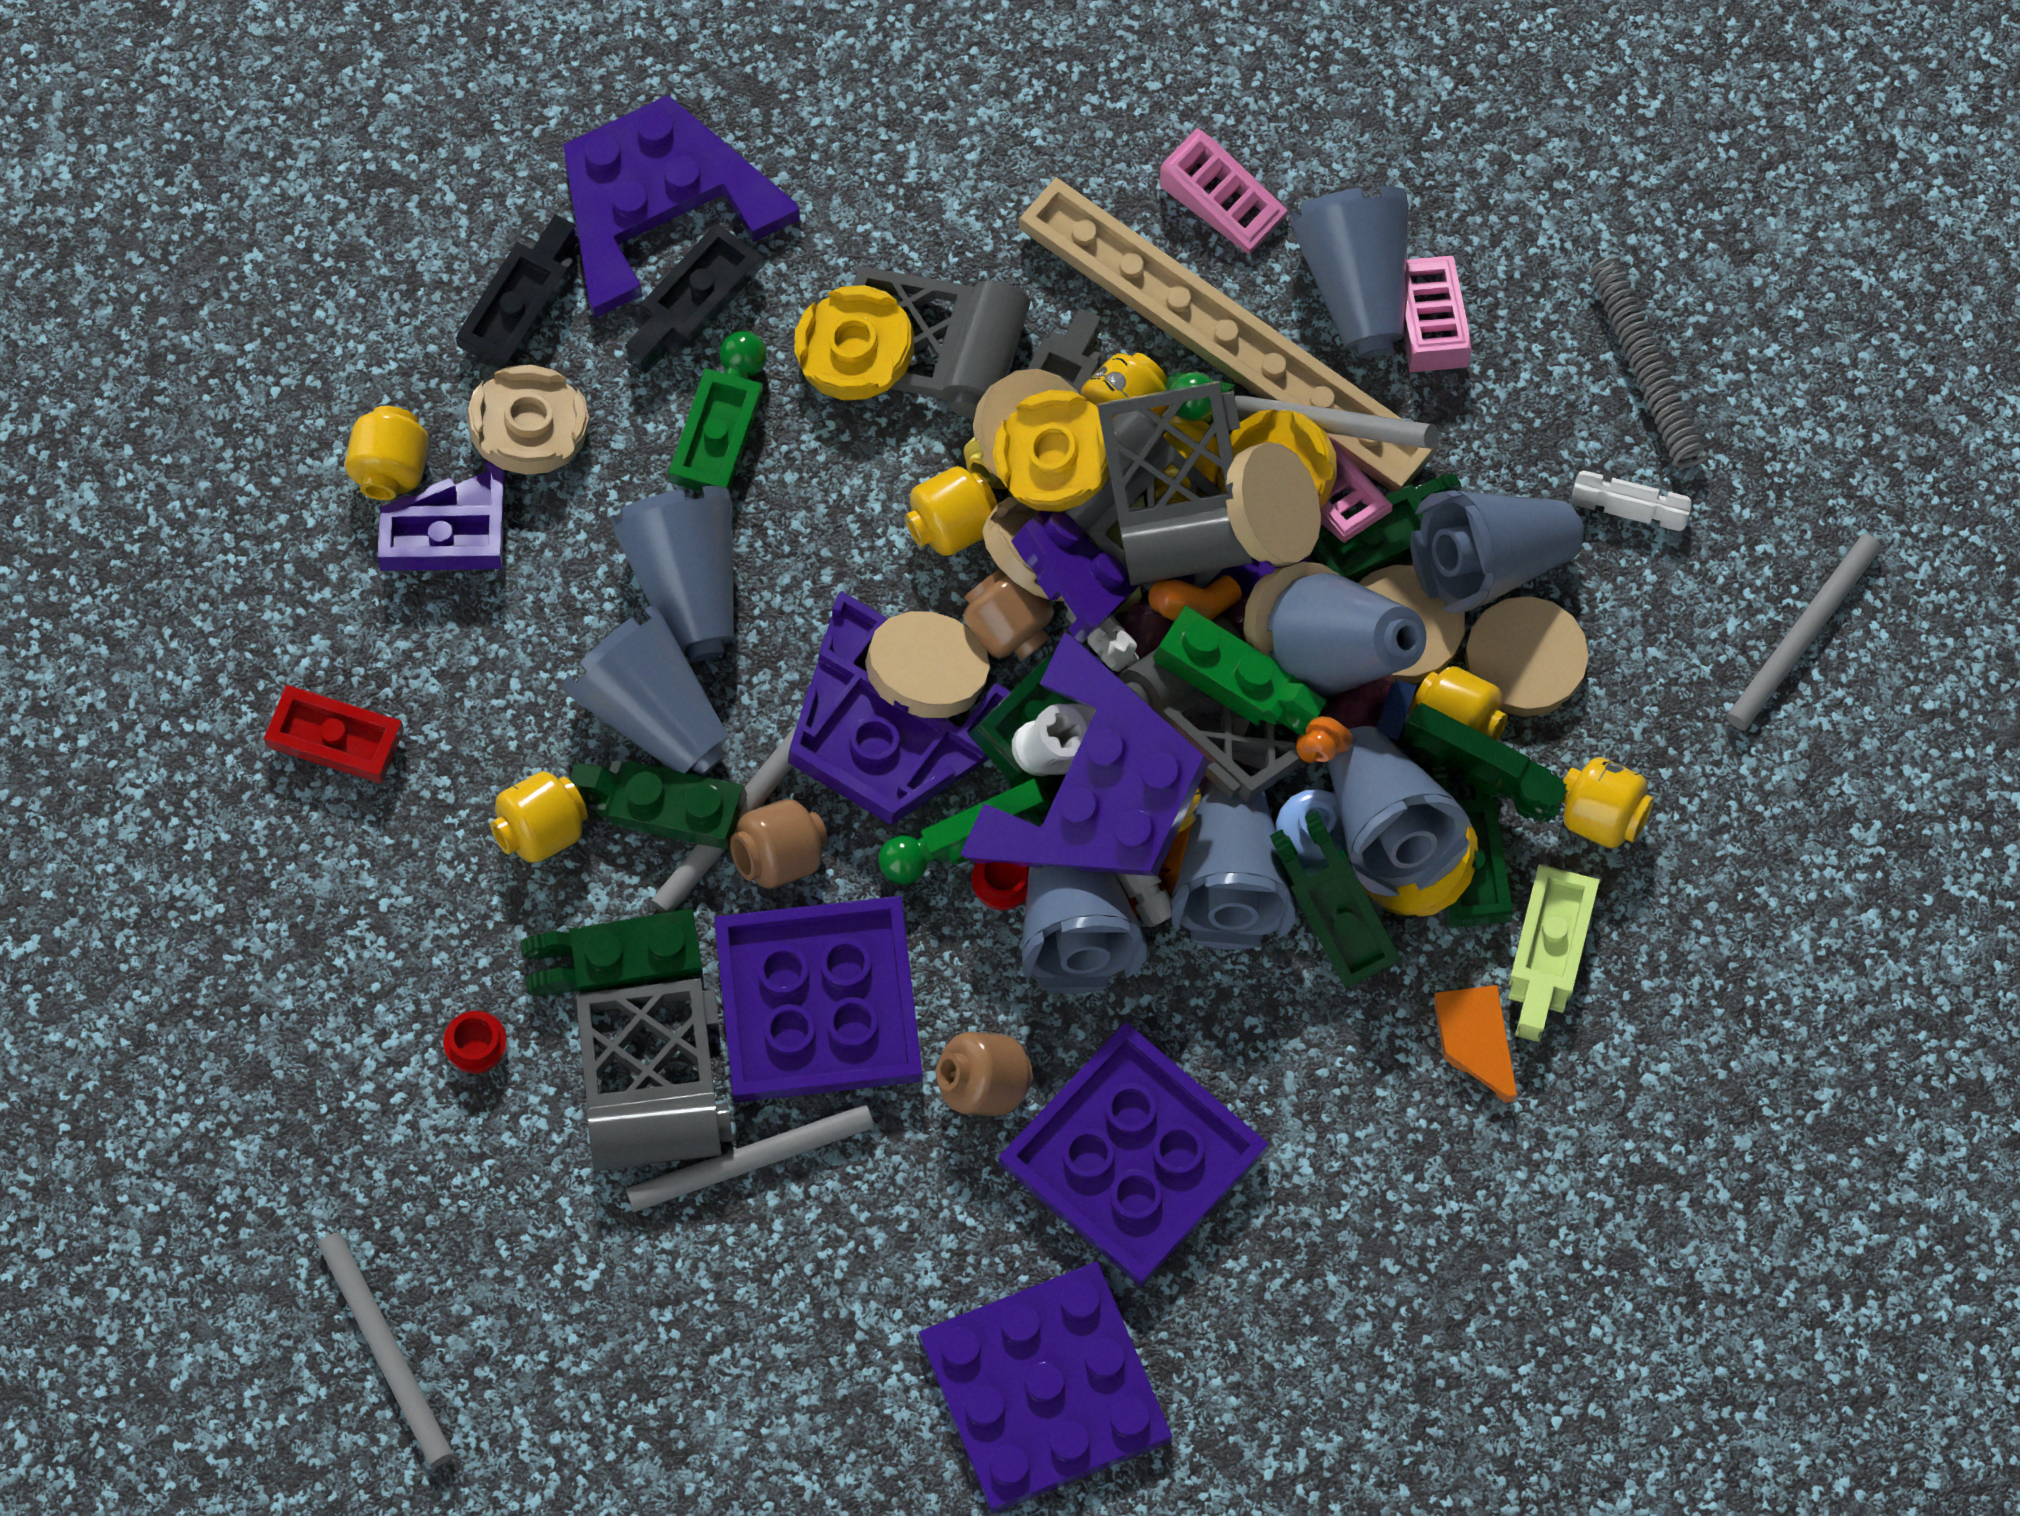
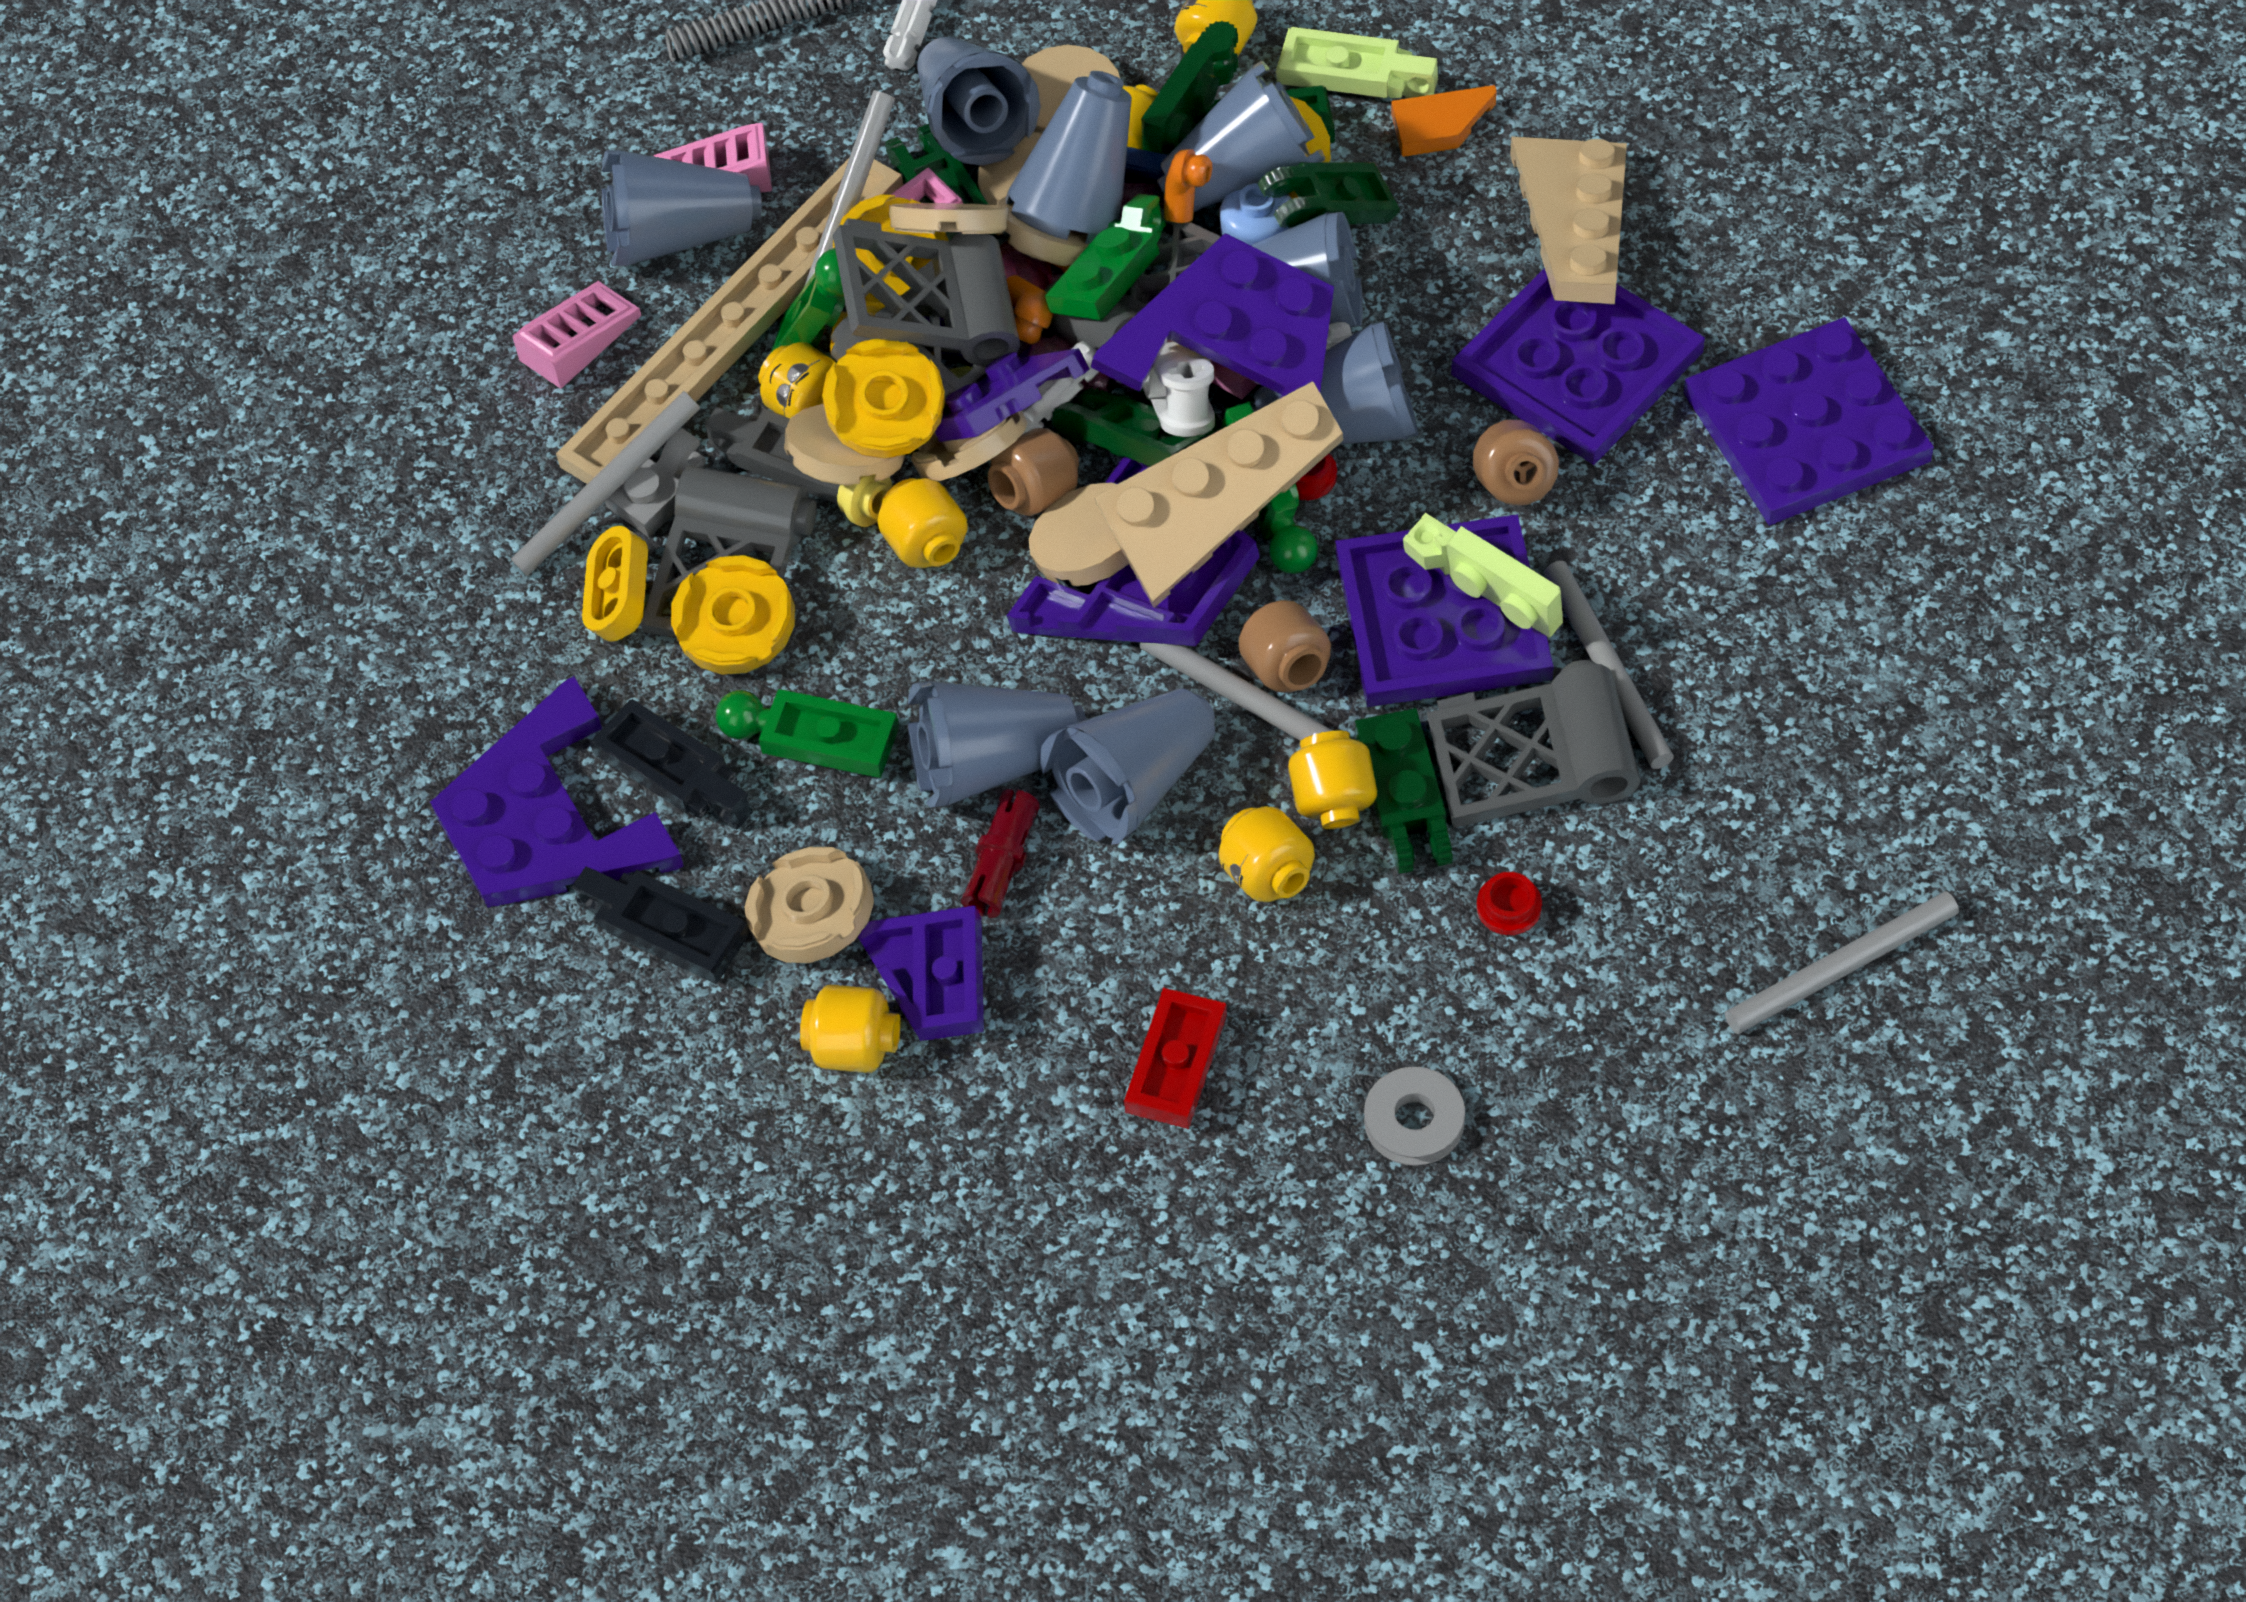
camera: 85 degrees left, 10 degrees down
(266, 974) = (1411, 1145): none -> light grey piece
(572, 586) = (1001, 852): none -> dark red pin
(617, 879) = (1332, 778): none -> yellow head
(662, 801) = (1242, 747): dark green hinge -> none
(828, 1027) = (1487, 571): none -> yellowish green hinge
(900, 238) = (615, 584): none -> yellow plate
(925, 754) = (1202, 495): none -> tan wing
(1012, 221) = (605, 483): none -> light grey bar
(1029, 267) = (649, 493): none -> light grey plate
(1330, 1163) = (1575, 211): none -> tan wing

